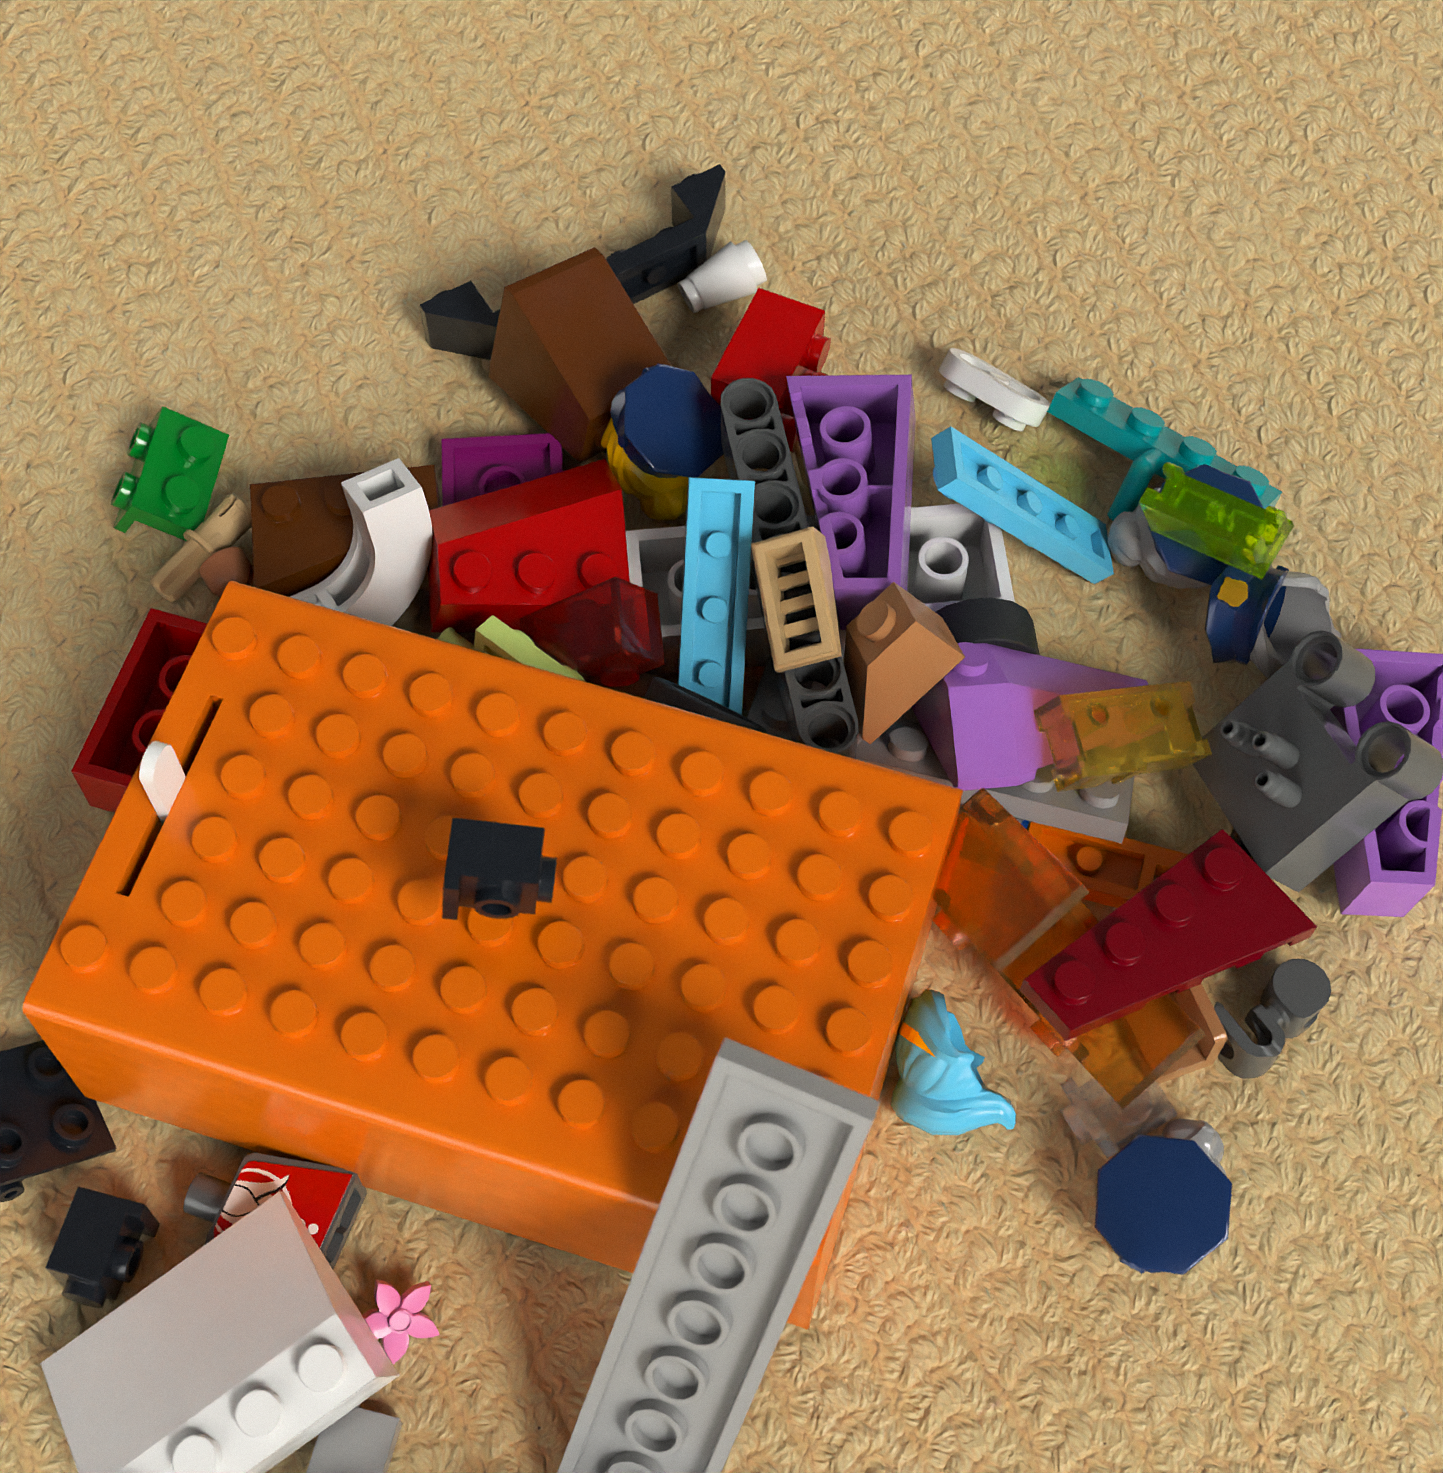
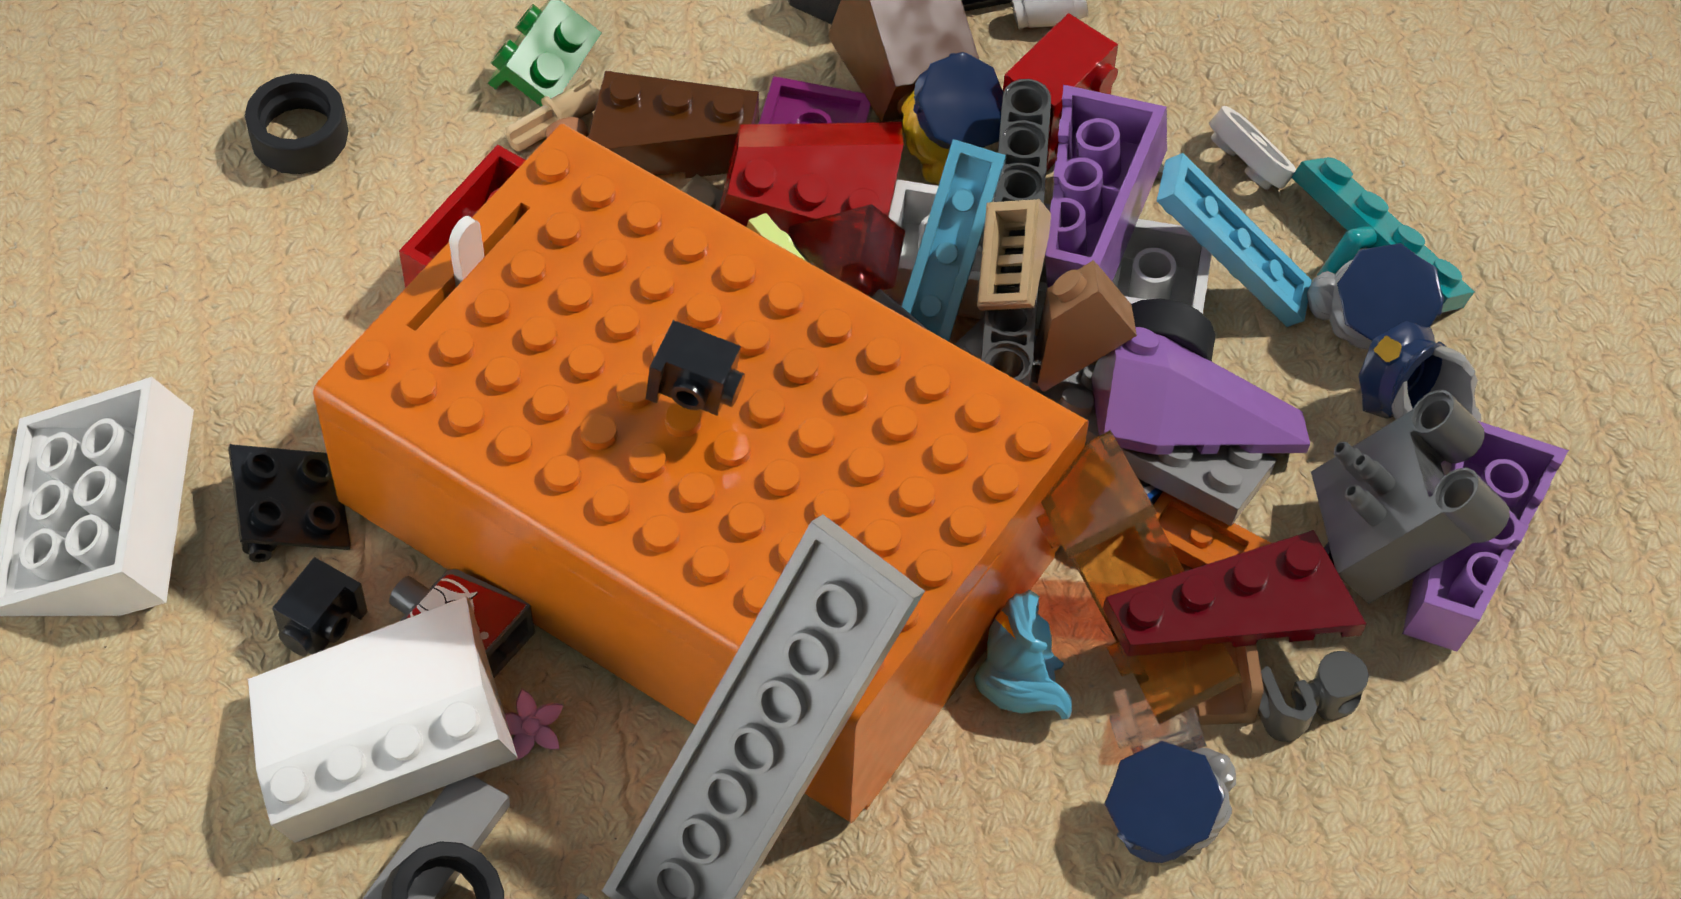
camera: 15 degrees right, 5 degrees down
(387, 547) = (702, 136): white arch -> none
(1121, 733) = (1257, 433): clear yellow piece -> none
(1216, 522) = (1389, 288): clear neon green hinge -> none

